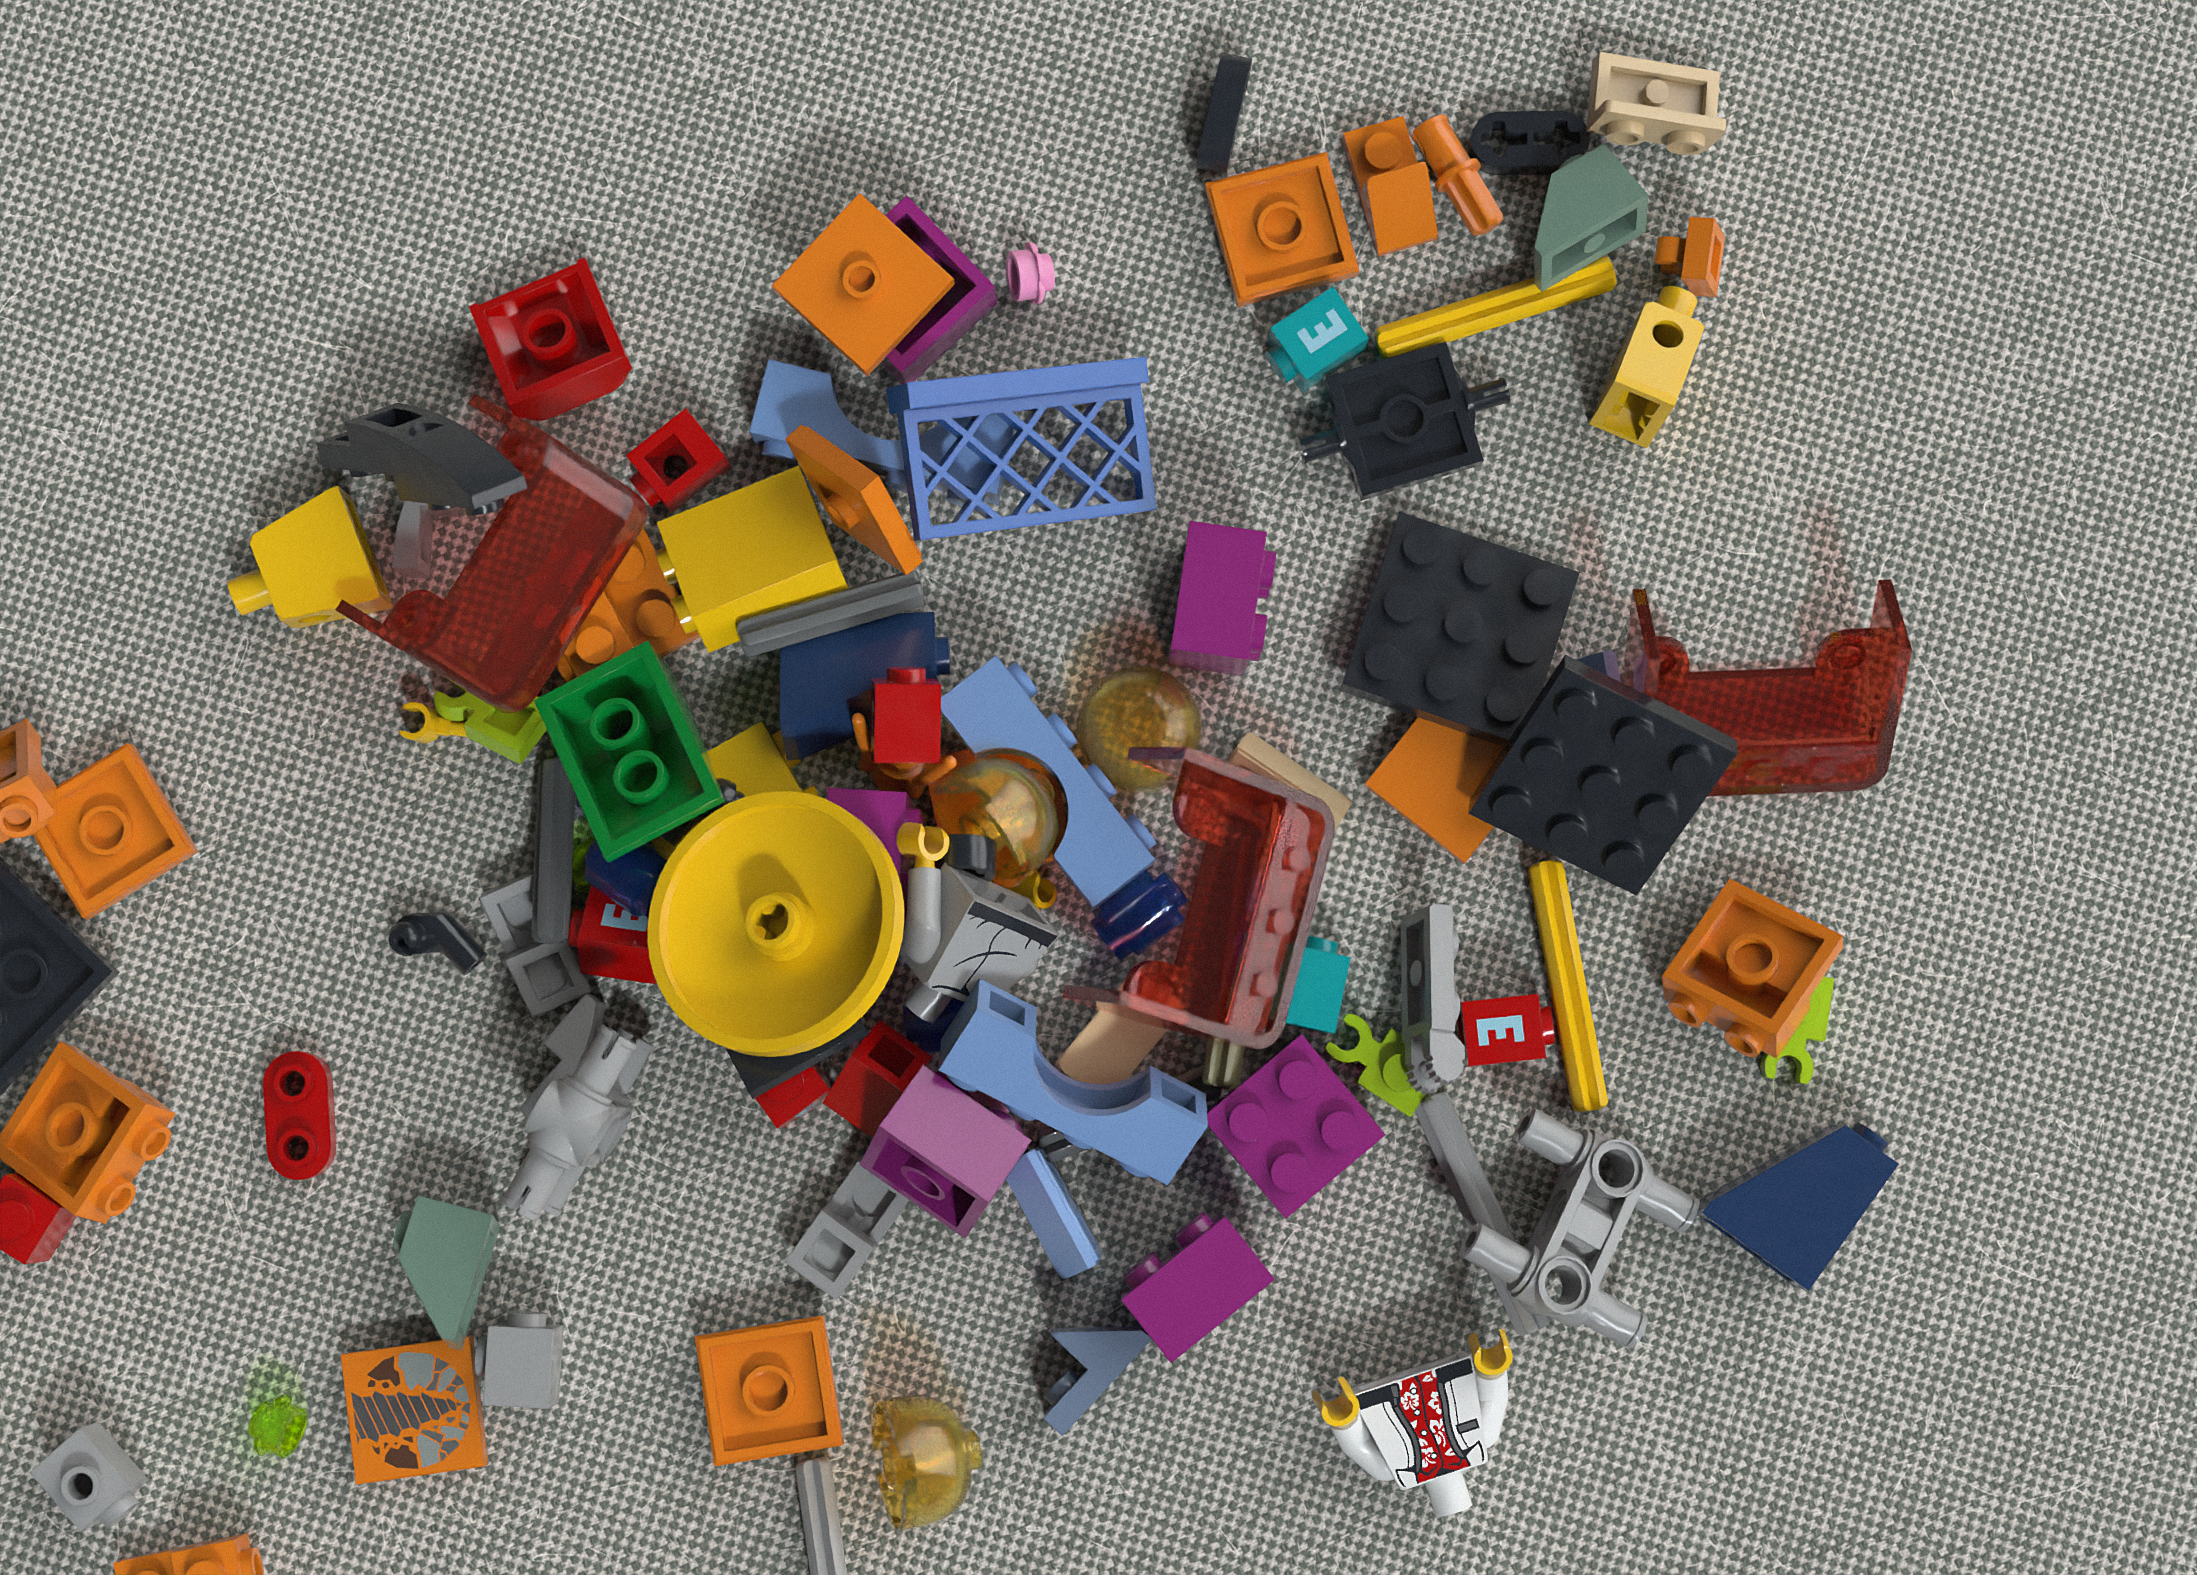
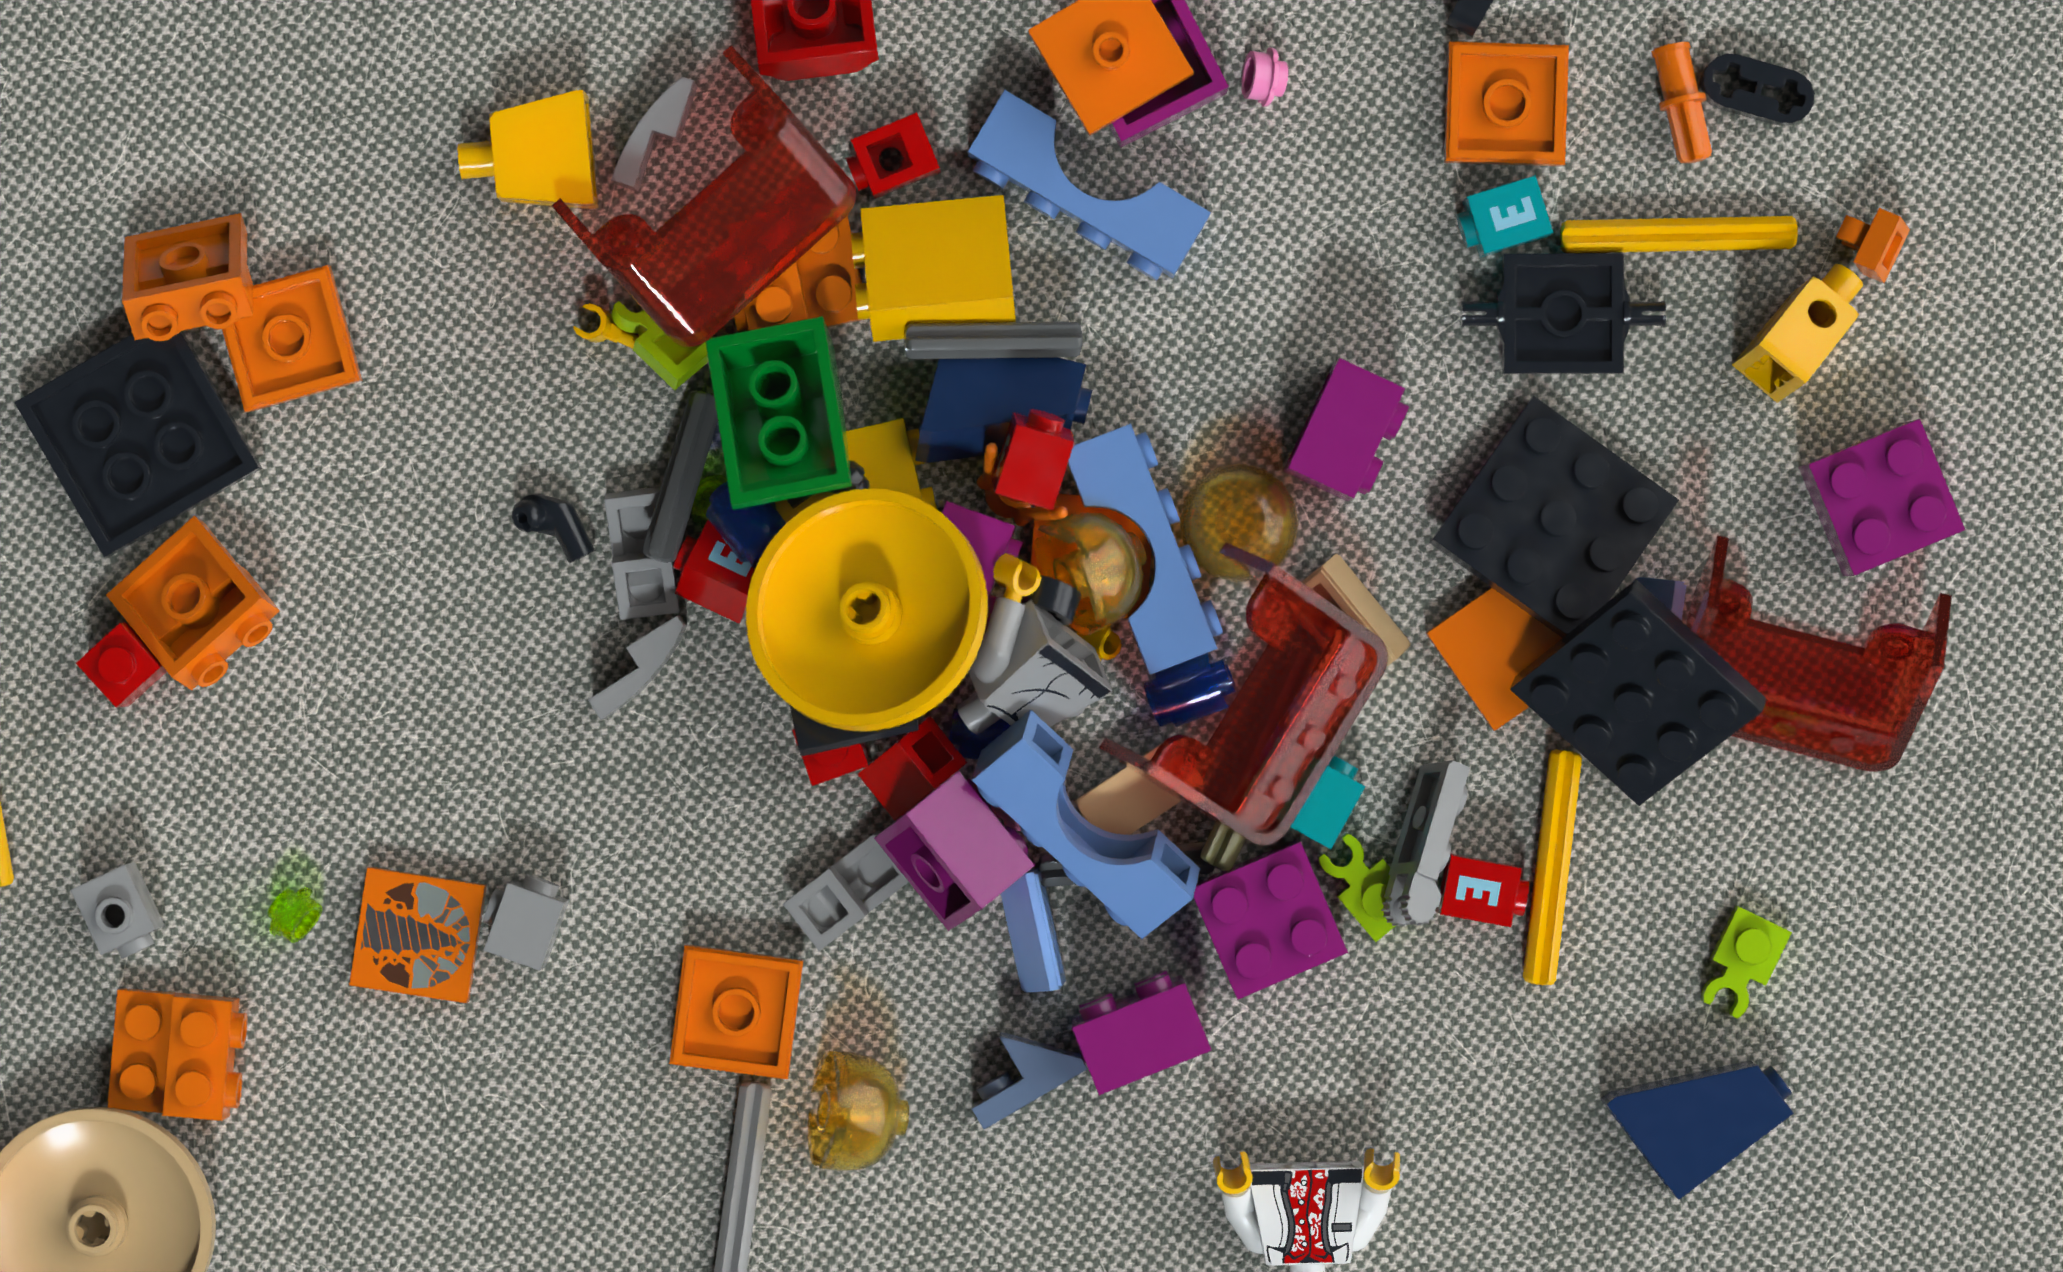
camera: 20 degrees right, 5 degrees up
(306, 1114) = (386, 644): red plate -> none
(426, 458) = (674, 94): black slope -> none
(446, 1260) = (484, 813): sand green slope -> none
(577, 1122) = (639, 729): light grey piece -> none
(855, 499) = (1045, 244): orange plate -> none
(1016, 392) = (1222, 189): fence -> none
(1391, 186) = (1619, 92): orange slope -> none
(1471, 1191) = (1413, 1046): light grey axle -> none
(1580, 1228) = (1495, 1084): light grey piece -> none
(1586, 214) = (1786, 176): sand green slope -> none
(1654, 103) = (1882, 89): tan bracket -> none
(1750, 970) = (1717, 903): orange plate -> none
(1784, 507) = (1881, 498): none -> magenta brick

